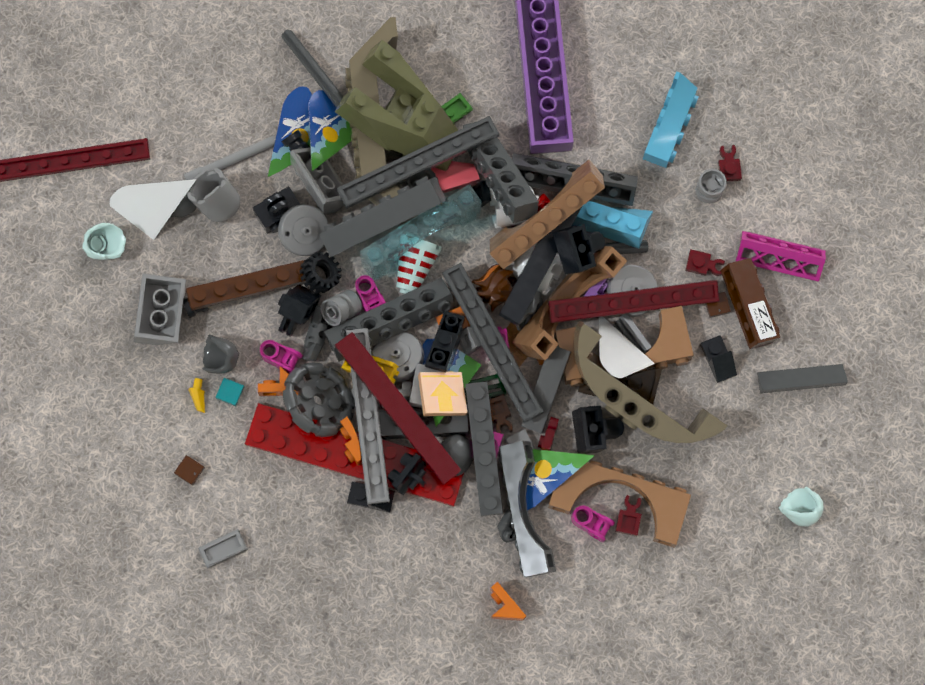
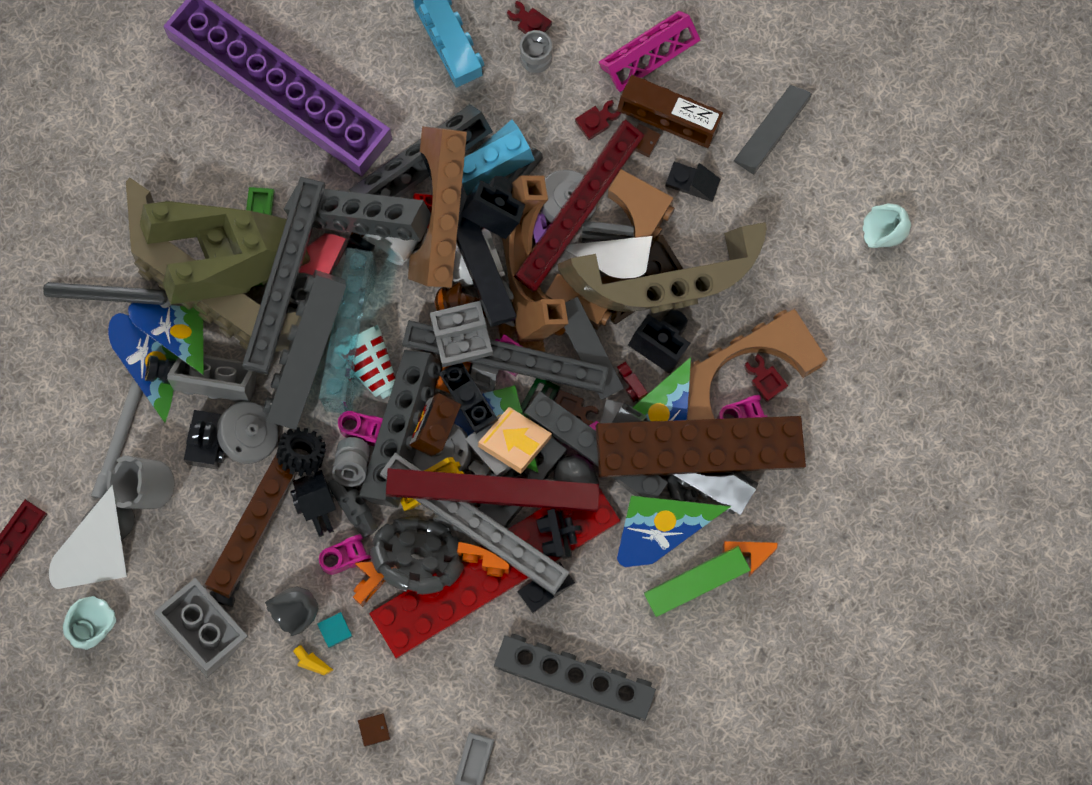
camera: 45 degrees left, 0 degrees up
(303, 513) = (508, 662): none -> dark grey brick
(407, 336) = (435, 424): none -> reddish brown brick
(457, 587) = (697, 581): none -> bright green tile
(471, 533) = (659, 526): none -> sticker
(479, 301) = (461, 333): none -> light grey slope
(544, 513) = (700, 446): none -> reddish brown plate

